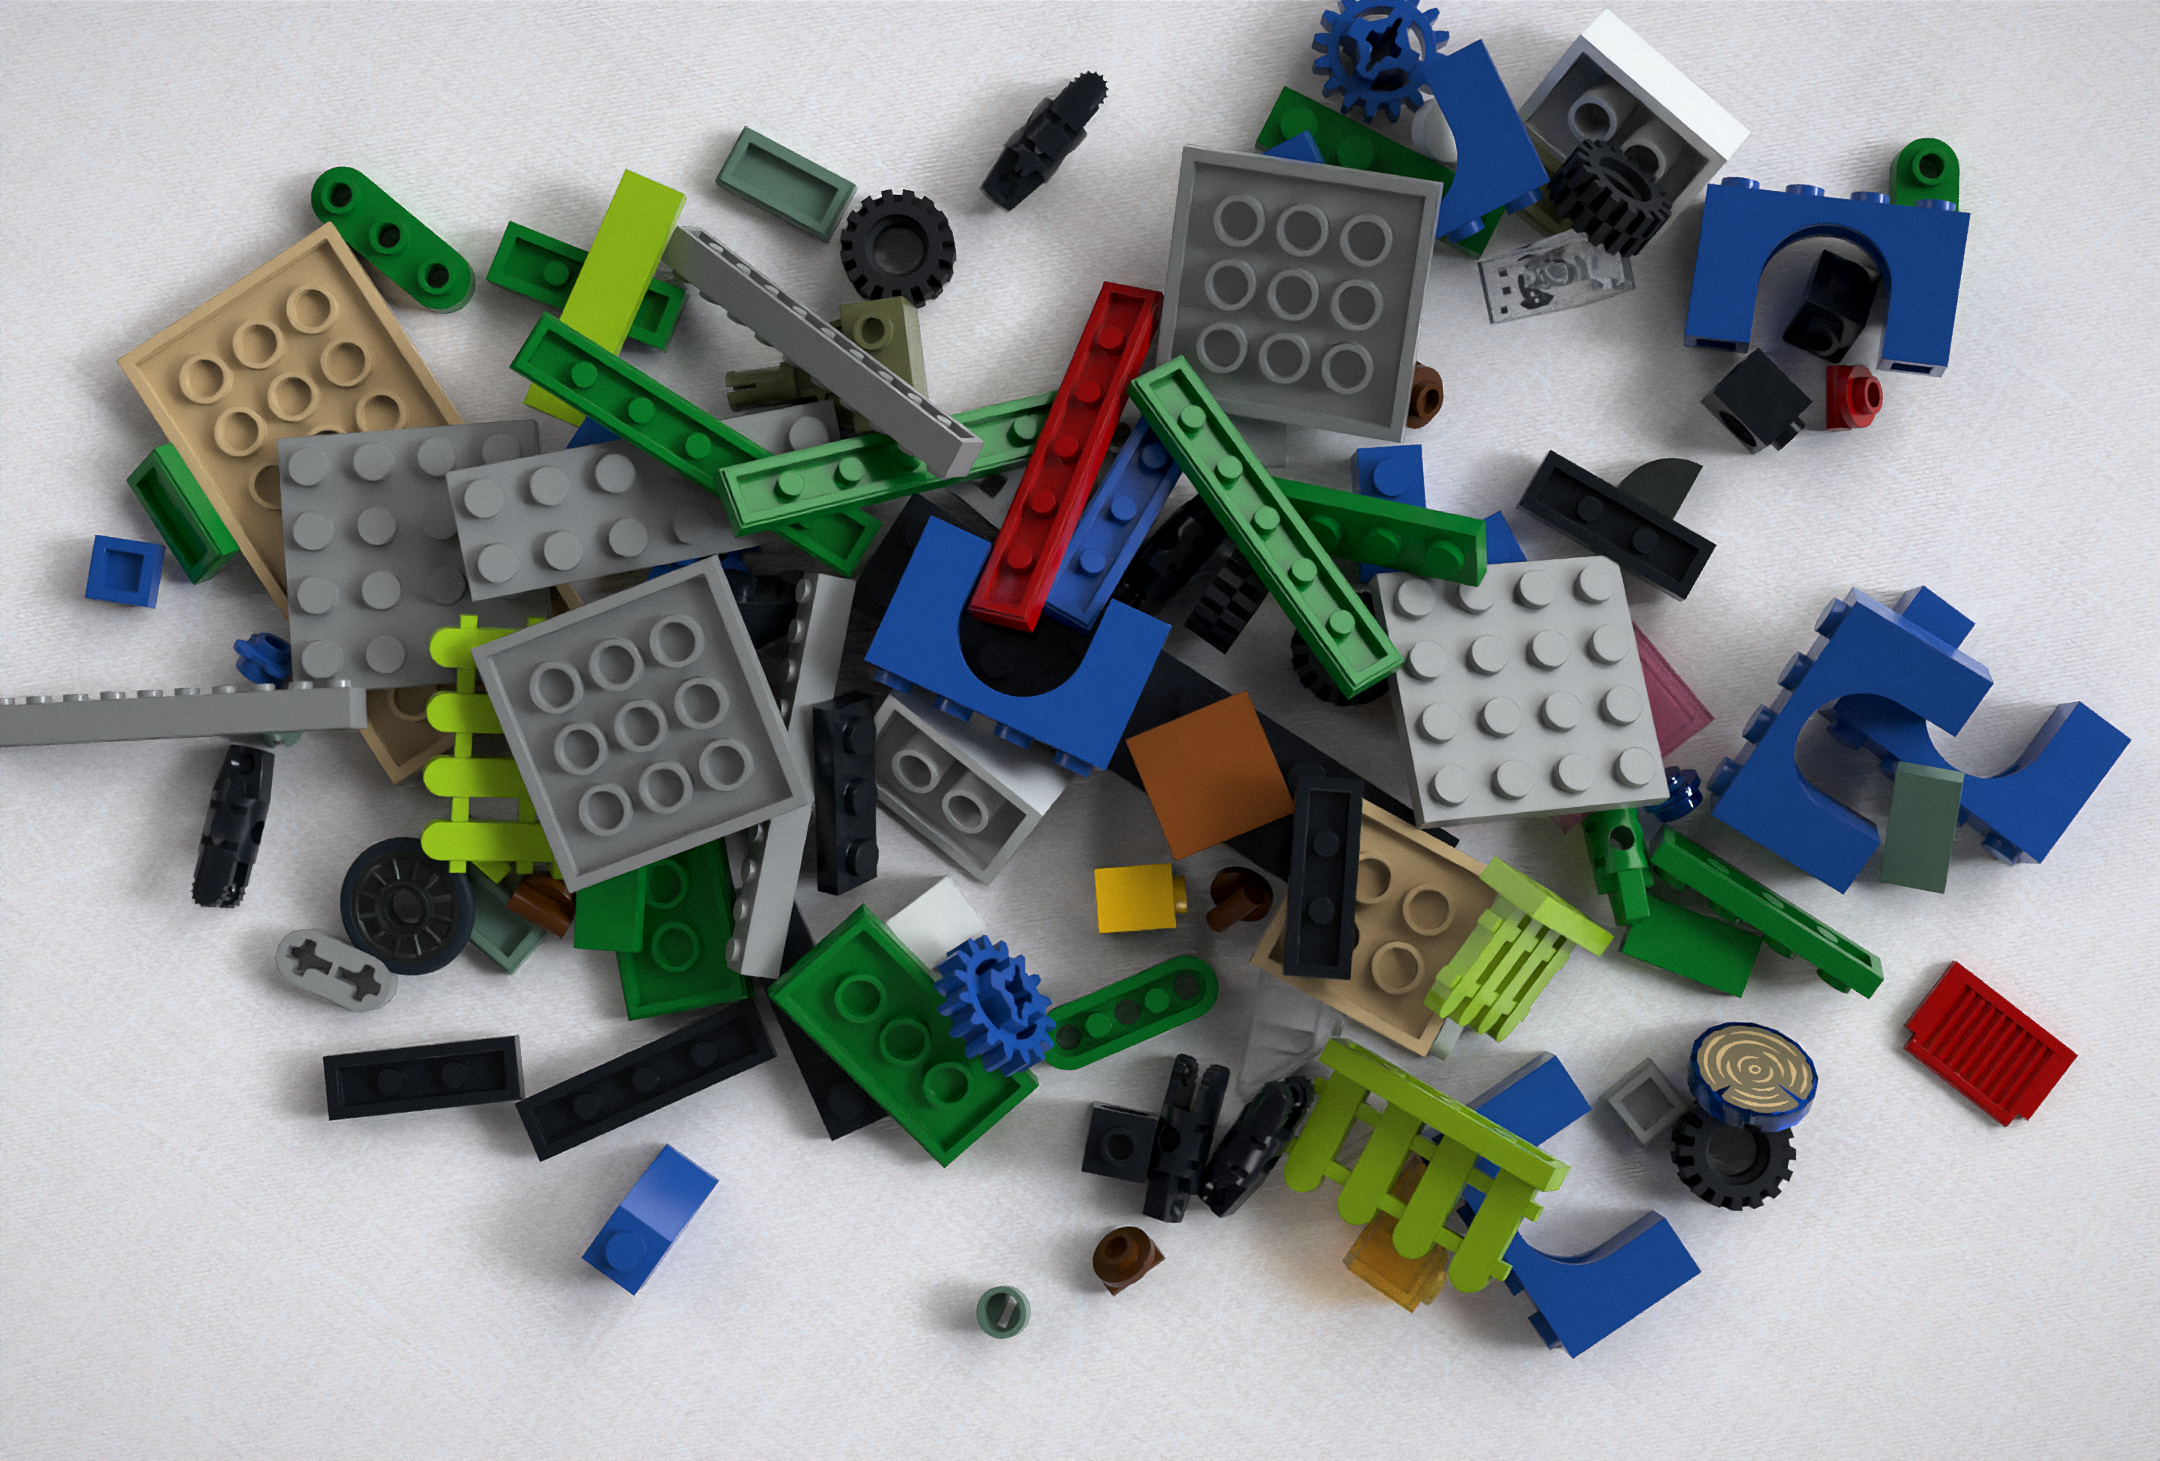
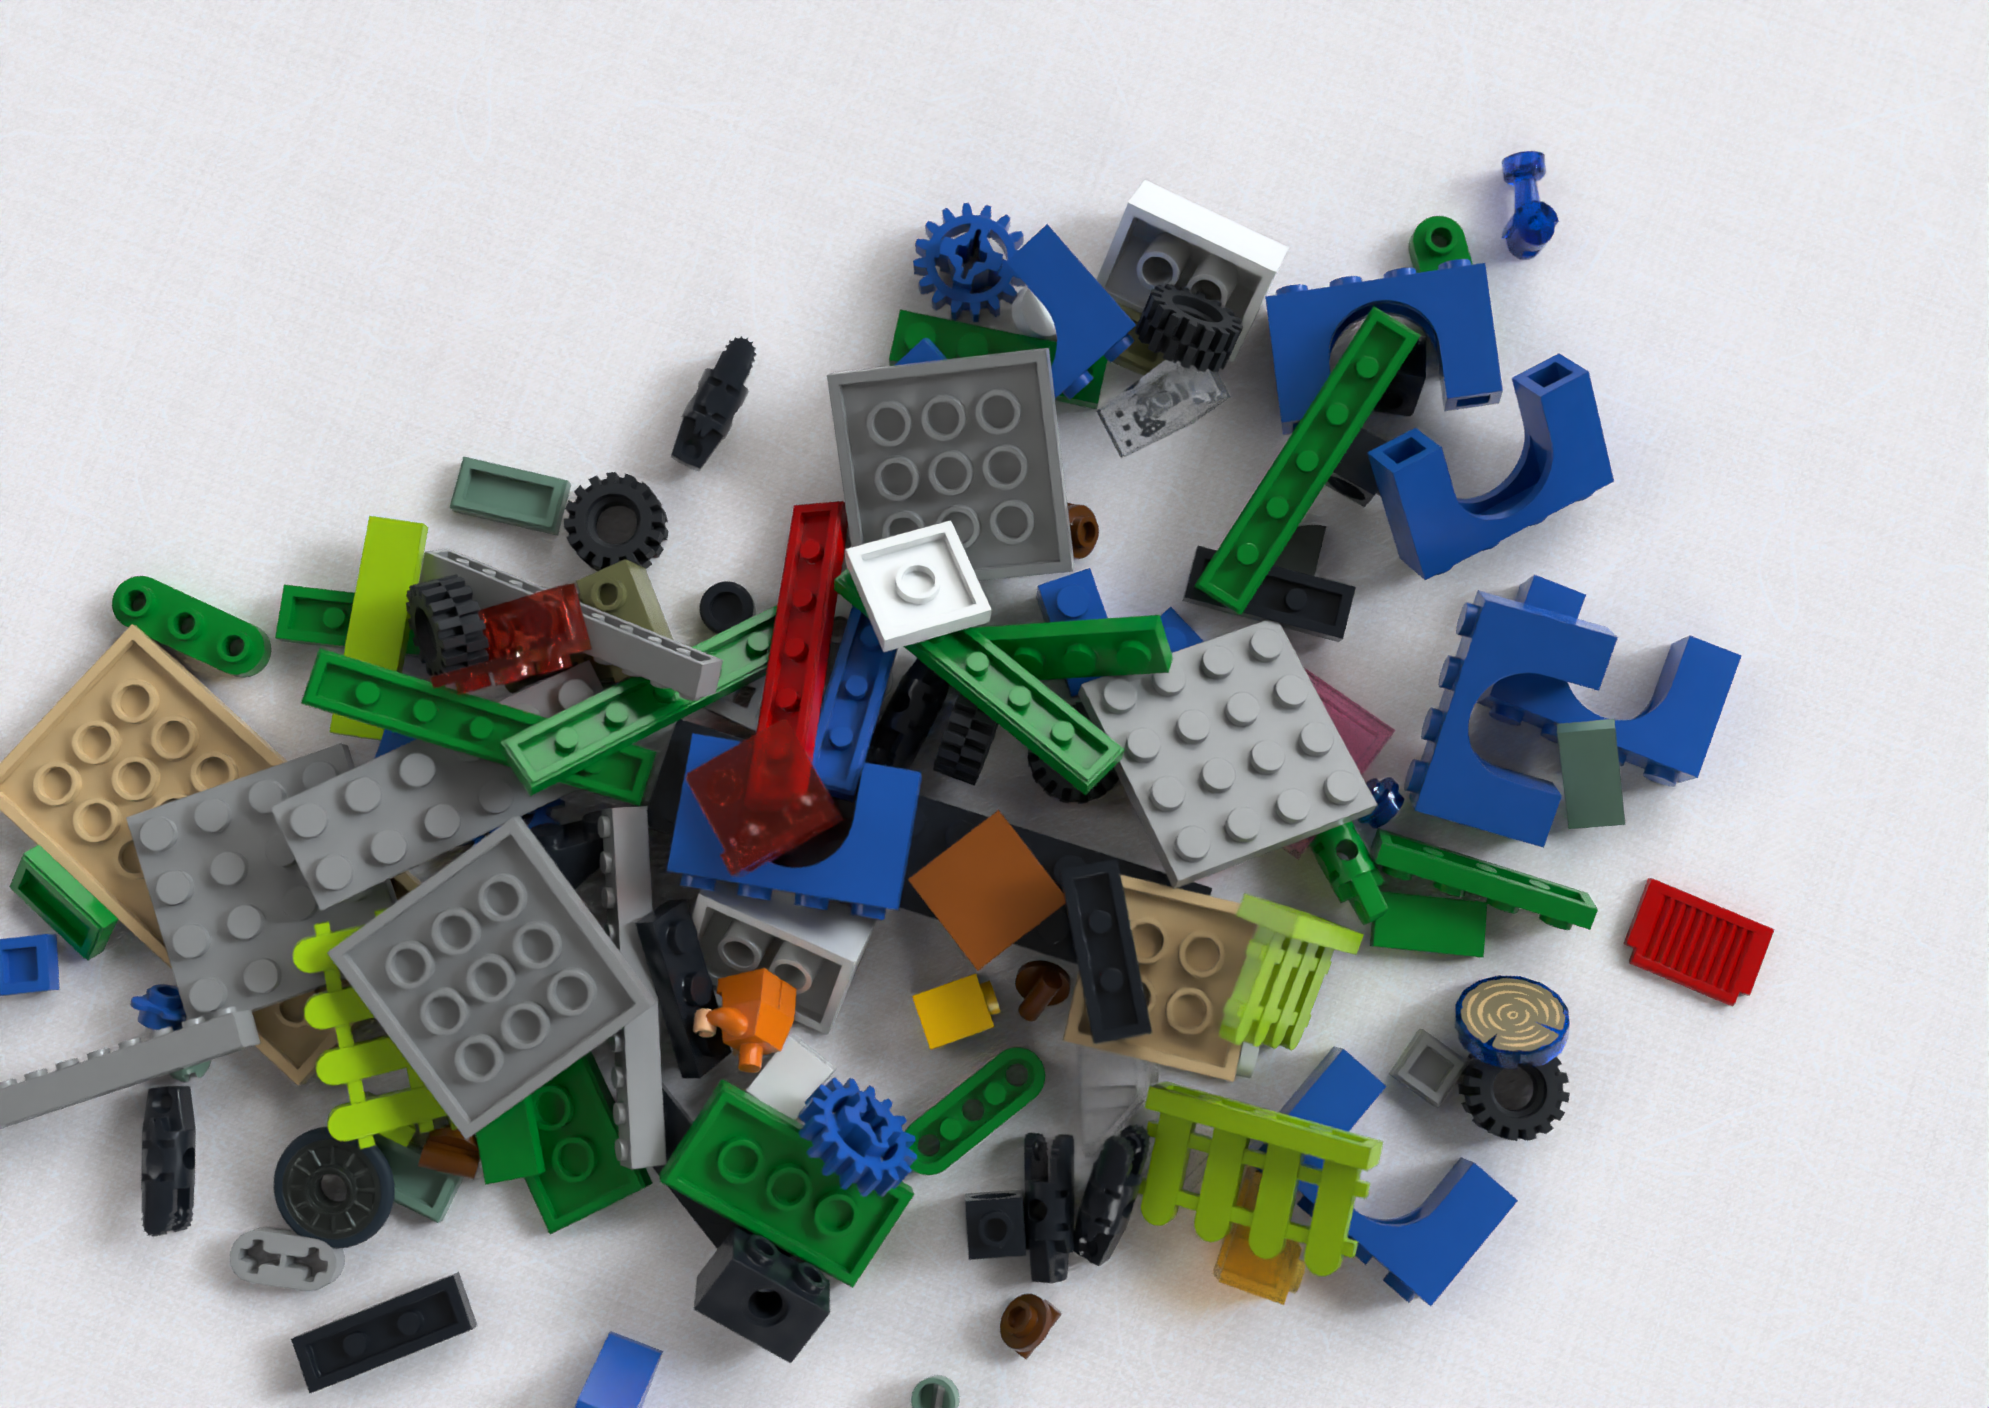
camera: 20 degrees left, 5 degrees down
(646, 1079) = (576, 1281): black plate -> none
(684, 321) = (446, 625): none -> black tyre
(769, 359) = (525, 633): none -> clear red bracket
(853, 1179) = (773, 1320): none -> black brick
(913, 844) = (753, 1016): none -> orange piece
(991, 608) = (763, 798): none -> clear red bracket
(997, 377) = (726, 606): none -> black tile
(1222, 414) = (917, 585): none -> white plate
(1702, 386) = (1307, 461): none -> green tile
(1851, 397) = (1436, 428): red plate -> none
(1985, 470) = (1559, 464): none -> blue arch
(2043, 174) = (1532, 220): none -> clear blue leg

